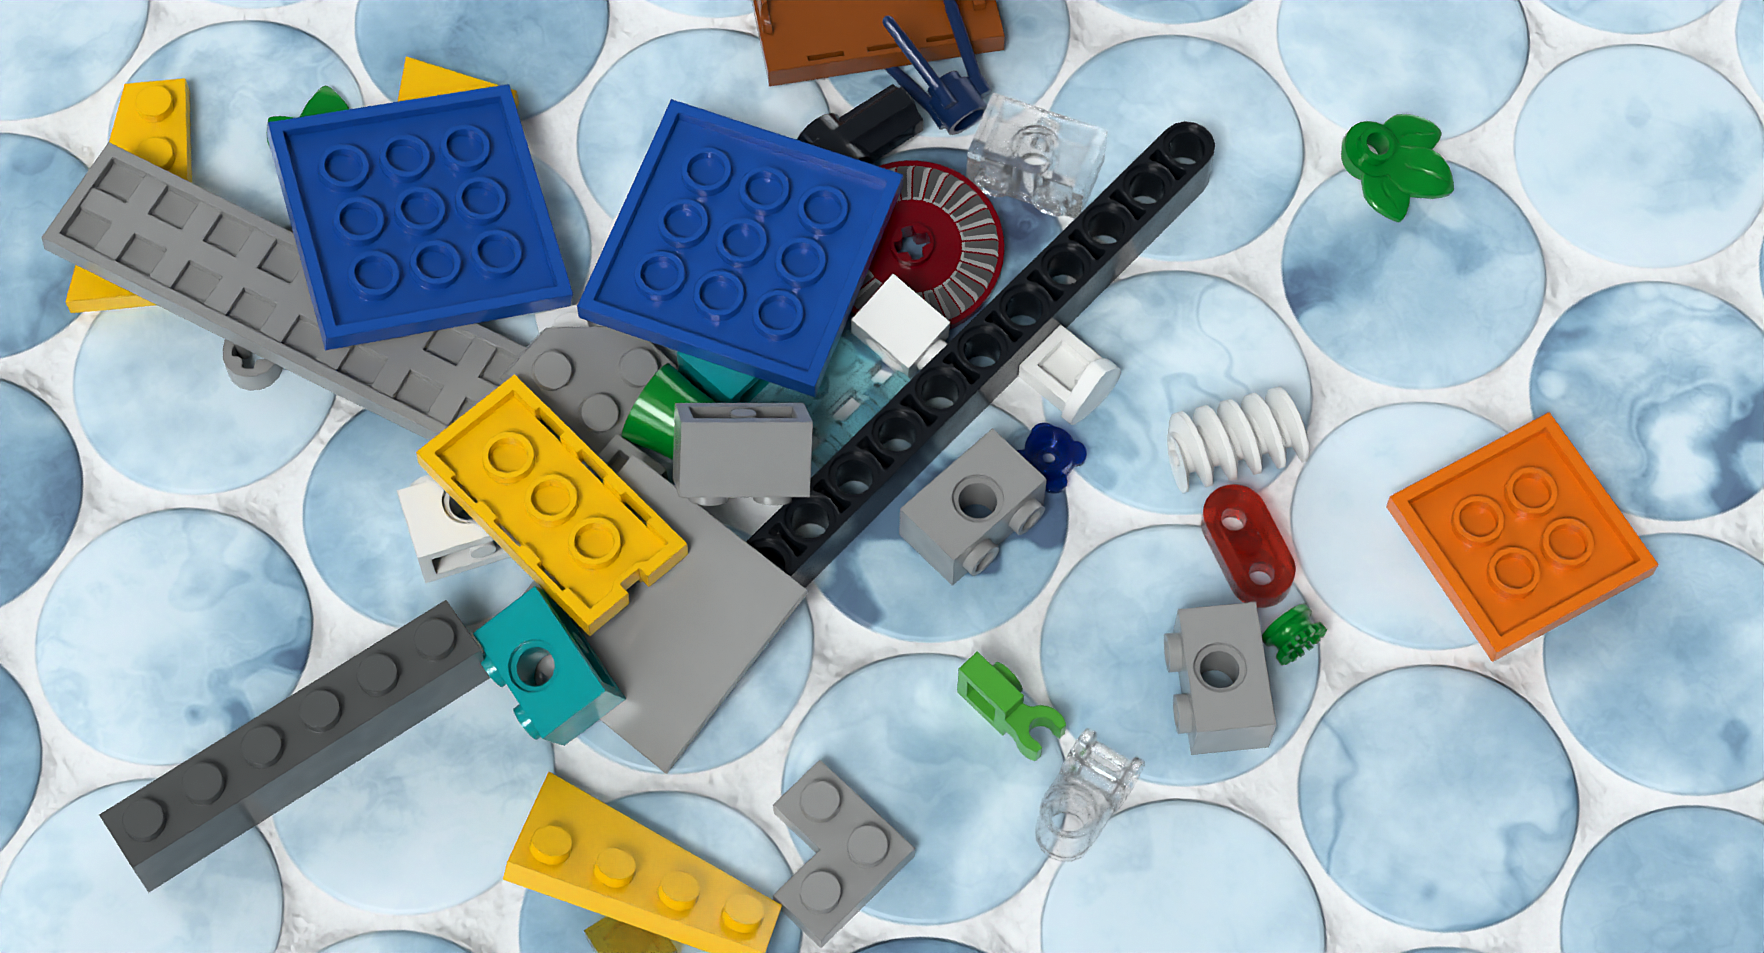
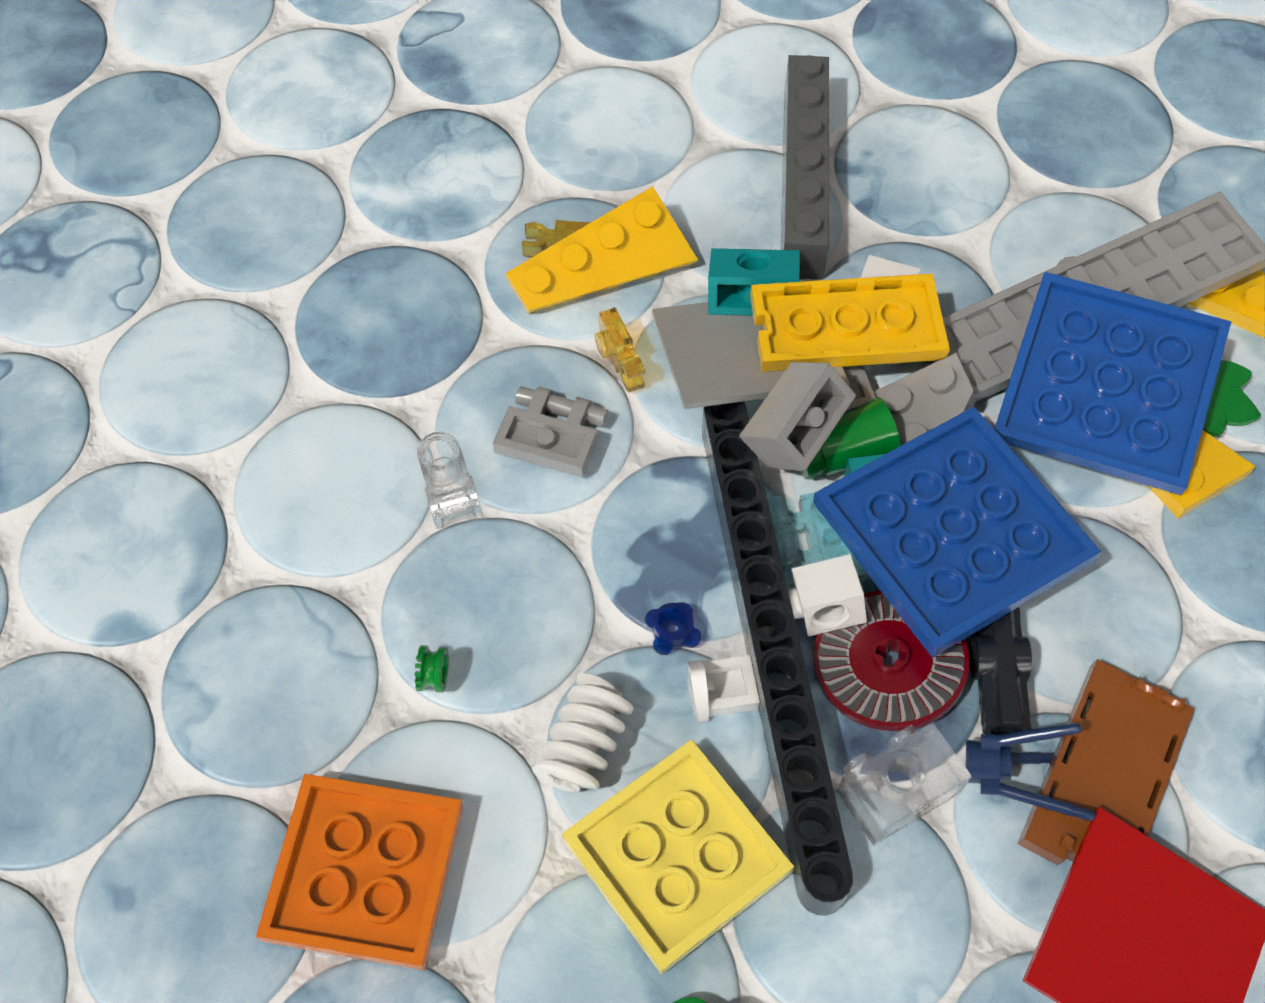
camera: 130 degrees right, 5 degrees down
(756, 761) = (617, 344): none -> clear yellow plate
(852, 858) = (532, 364): light grey plate -> none
(943, 739) = (548, 440): none -> light grey plate
(985, 475) = (677, 527): light grey brick -> none
(999, 700) = (540, 478): bright green plate -> none
(1230, 642) = (459, 626): light grey brick -> none
(1251, 548) = (514, 689): clear red plate -> none
(1264, 294) = (677, 855): none -> light yellow plate

